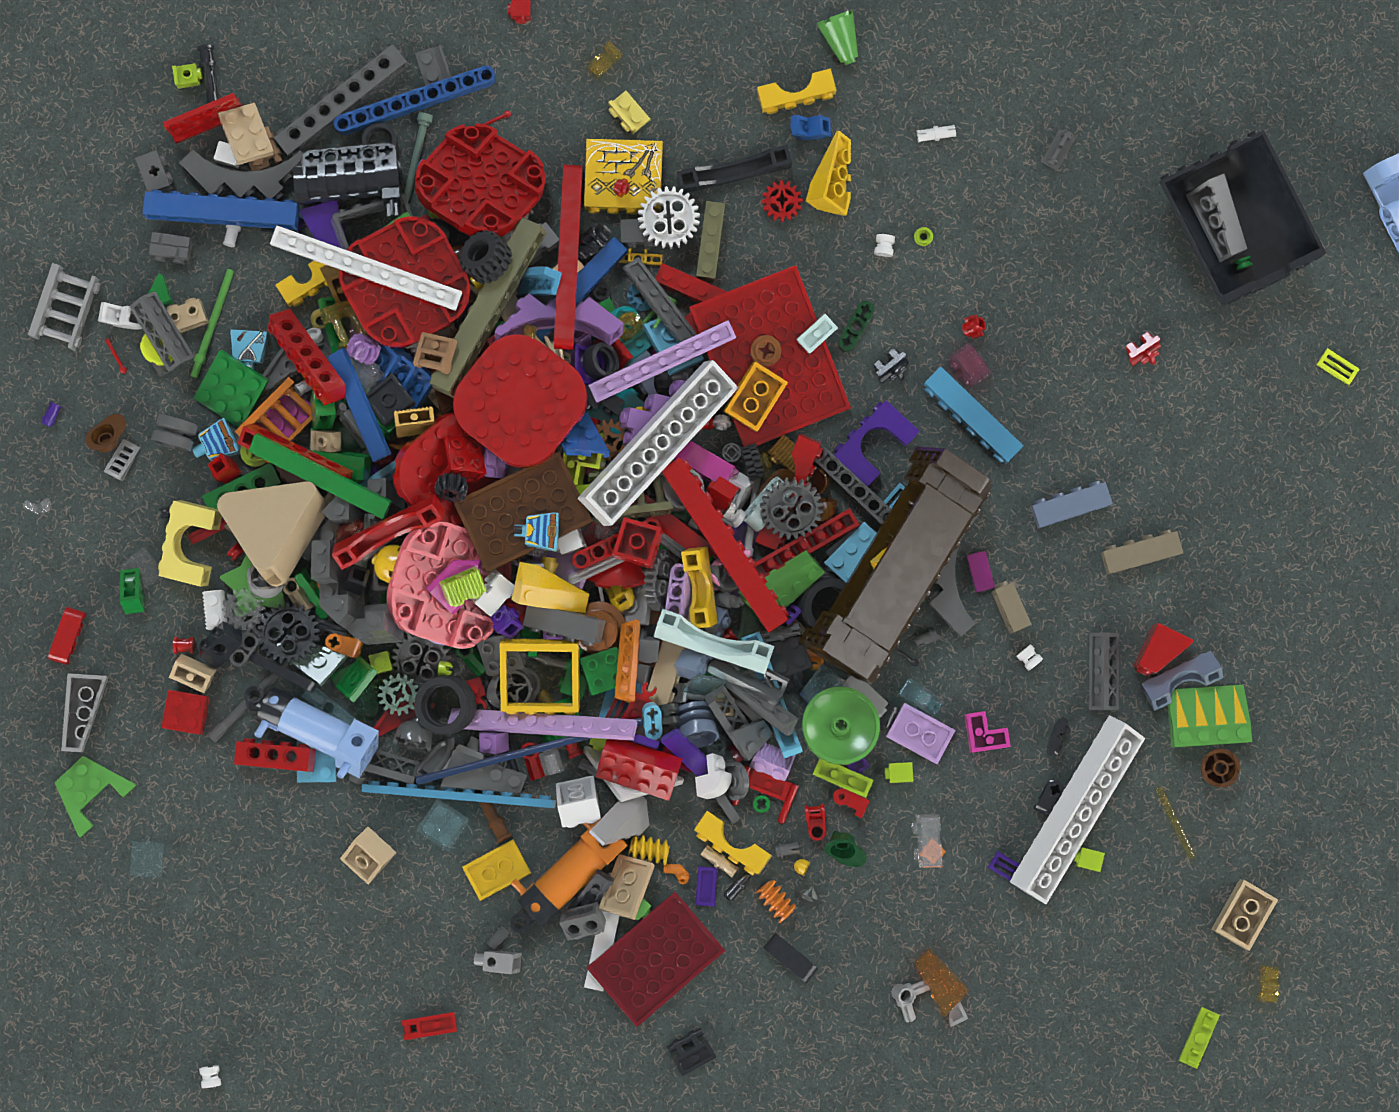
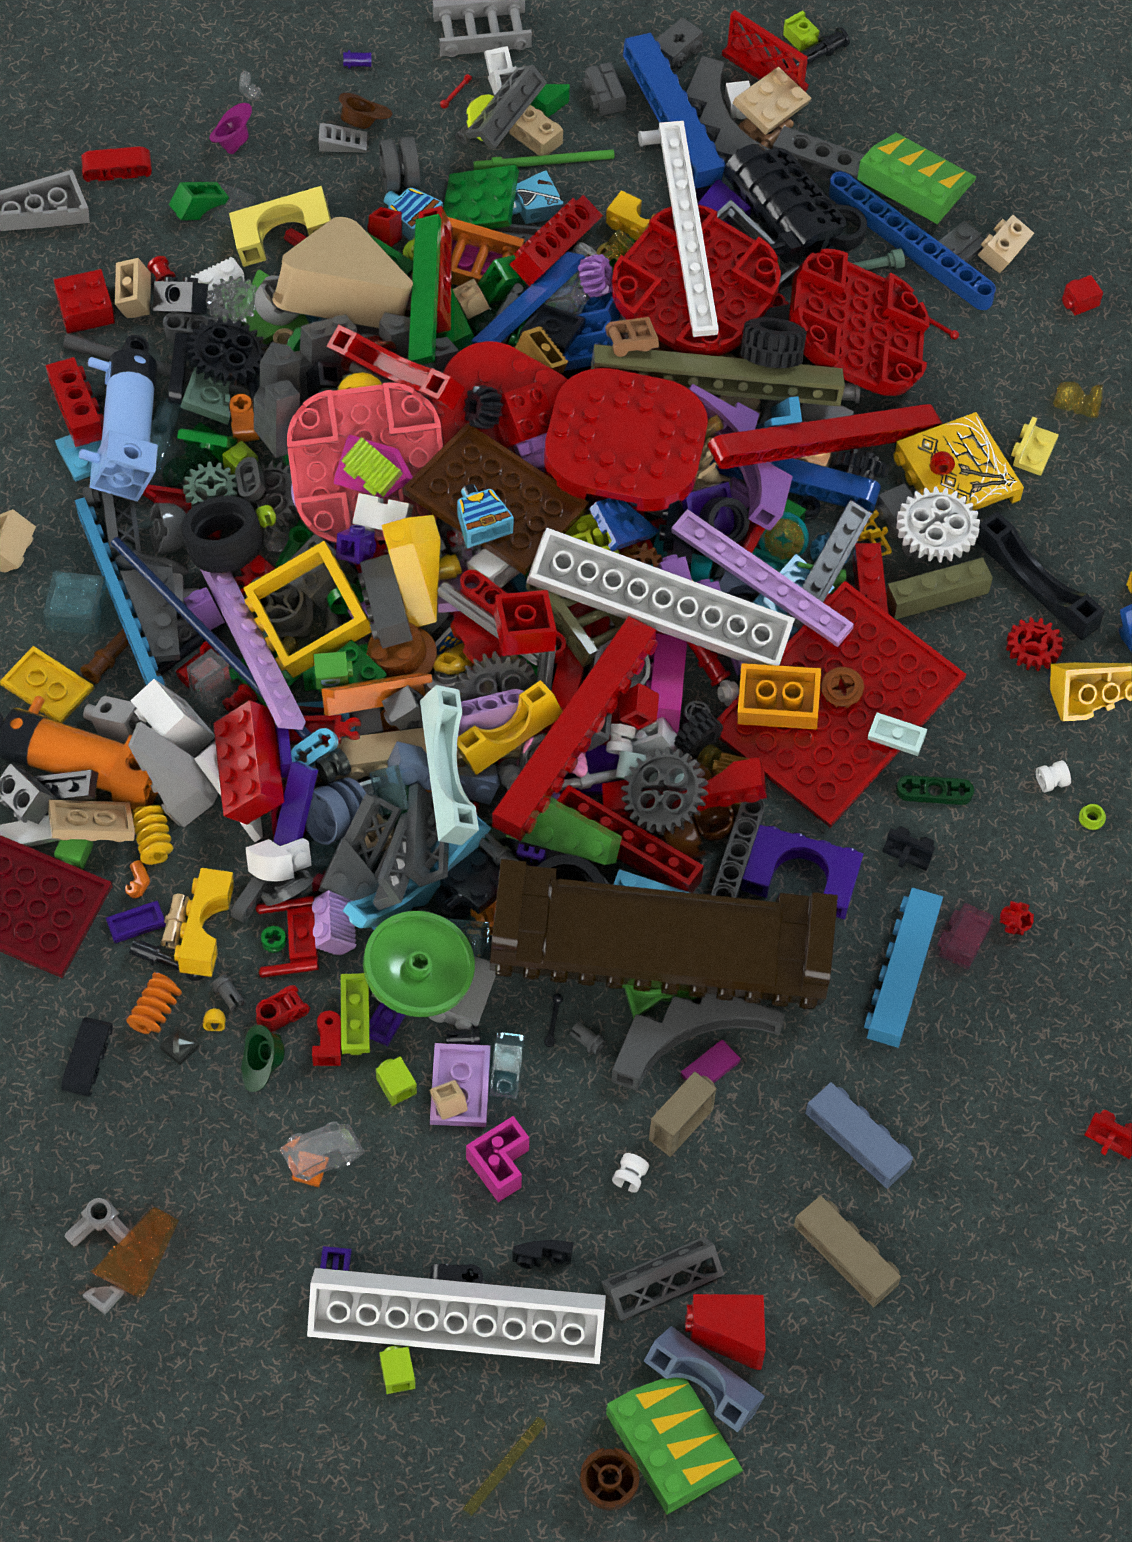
camera: 60 degrees right, 25 degrees down
(75, 537) = (232, 128): none -> magenta piece
(368, 68) = (914, 176): none -> bright green slope
(408, 665) = (250, 479): none -> dark grey plate
(452, 36) = (1005, 244): none -> tan brick
(557, 835) = (113, 718): none -> light grey torso
(603, 683) = (332, 669): none -> bright green brick
(930, 746) = (449, 1099): none -> tan slope

